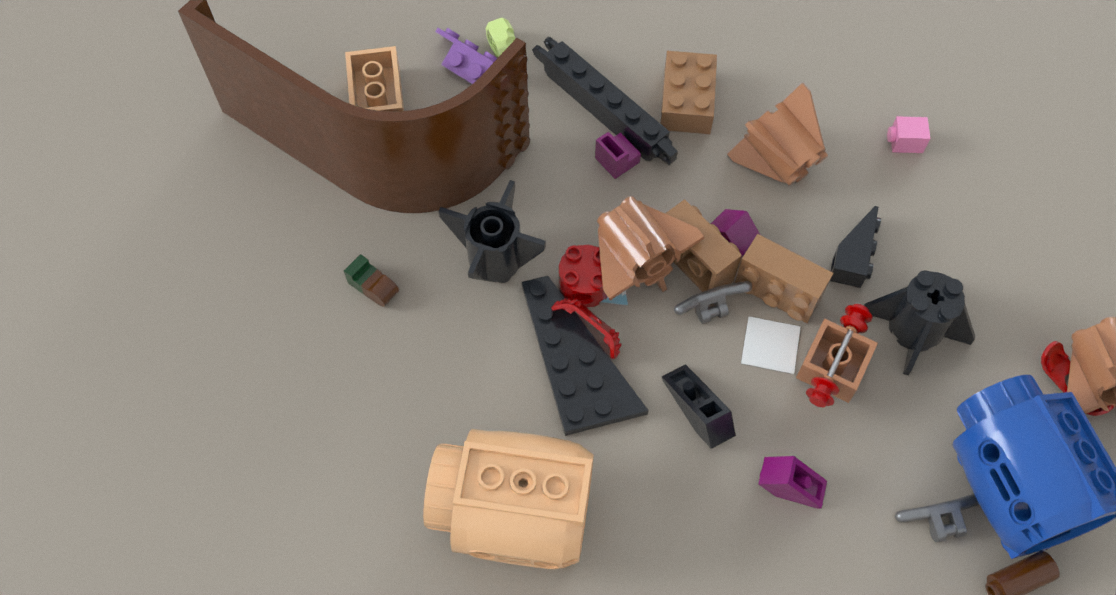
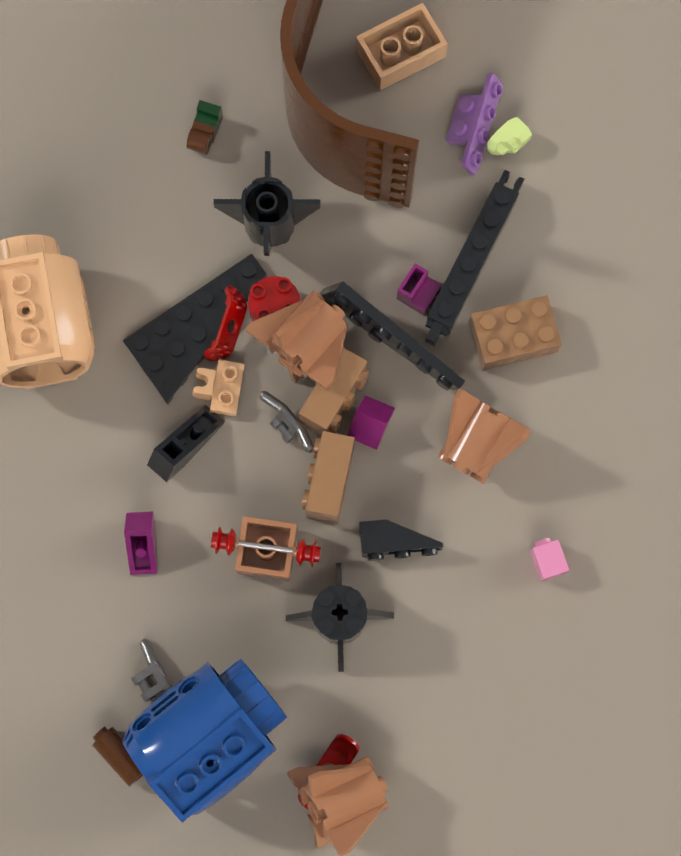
camera: 70 degrees right, 15 degrees up
(649, 353) = (222, 386): none -> light nougat plate
(654, 182) = (384, 330): none -> black wing
(771, 345) = (272, 491): white sticker -> none

